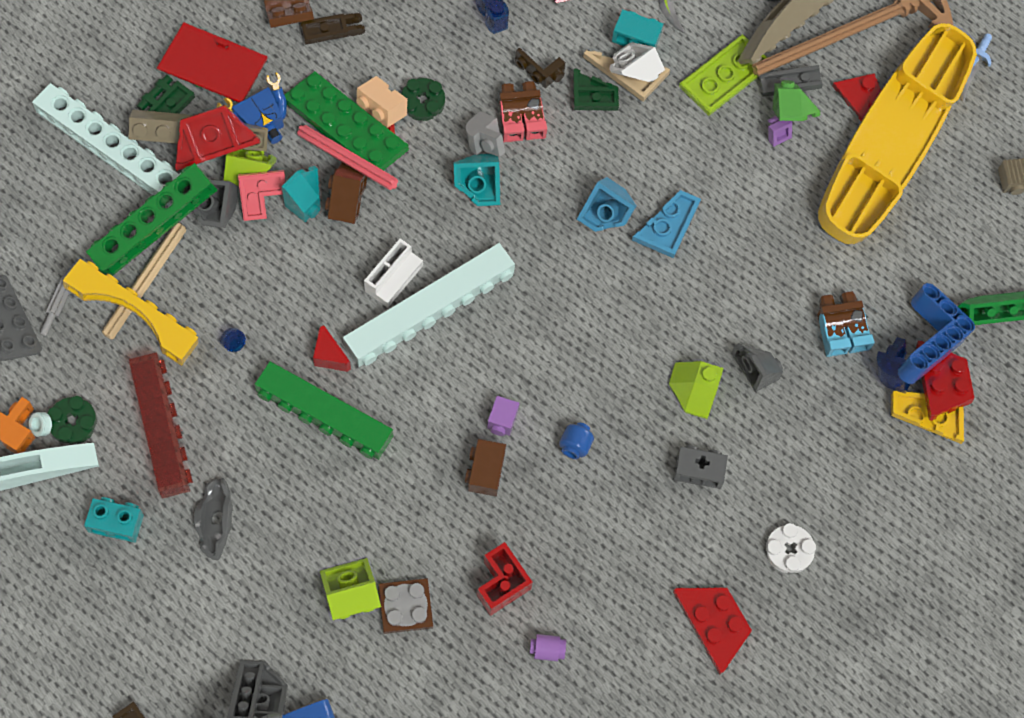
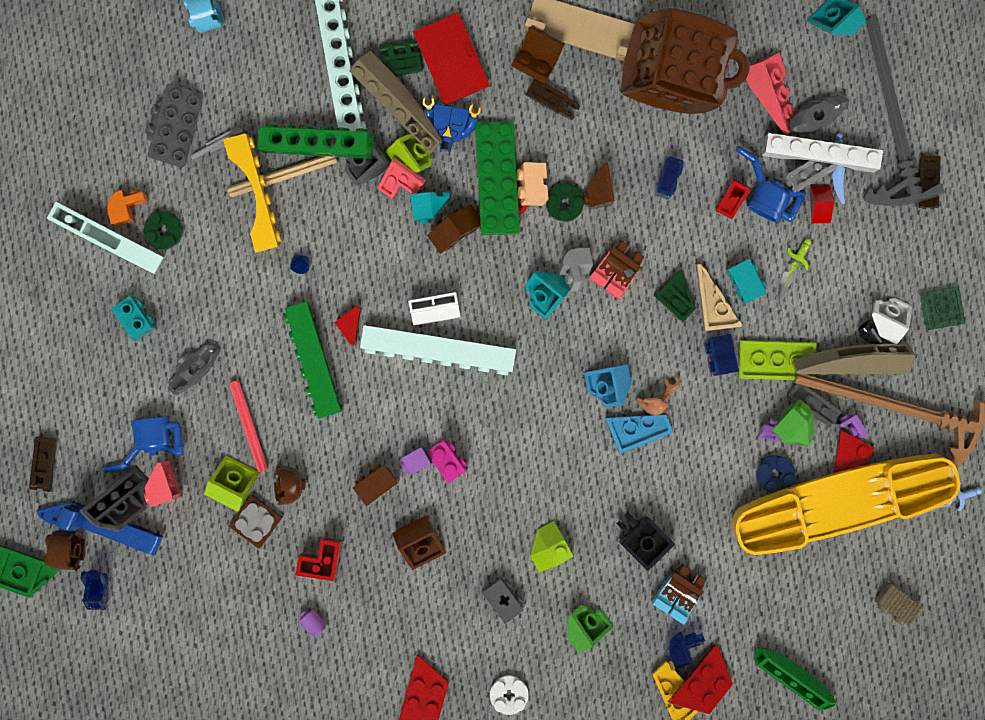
camera: 50 degrees right, 20 degrees up
(40, 424) = (141, 217): light aqua tile -> none
(160, 426) = (209, 281): clear red brick -> none
(211, 136) = (399, 118): red wing -> none
(231, 612) = (151, 436): none -> blue piece
(286, 646) = (161, 485): none -> coral slope
(317, 524) = (248, 425): none -> coral axle
(347, 157) = (473, 206): coral axle -> none
(405, 539) = (288, 485): none -> reddish brown cylinder
(445, 58) = (600, 190): none -> reddish brown slope
(532, 387) = (446, 460): none -> dark pink bracket
(545, 77) = (664, 260): dark brown bracket -> none
(576, 440) = (445, 516): blue head -> none
(576, 485) = (418, 542): none -> reddish brown slope
(637, 62) = (719, 305): white slope -> none
(664, 186) = (657, 406): none -> nougat piece
(677, 105) = (721, 355): none -> clear blue brick
(757, 365) = (600, 573): dark grey slope -> none
(760, 297) = (645, 529): none -> black hinge
(797, 425) = (587, 627): none -> bright green slope
(817, 150) = (766, 468): none -> dark blue plate
(839, 67) = (856, 427): none -> medium lavender bracket
(952, 329) = (744, 661): blue beam -> none

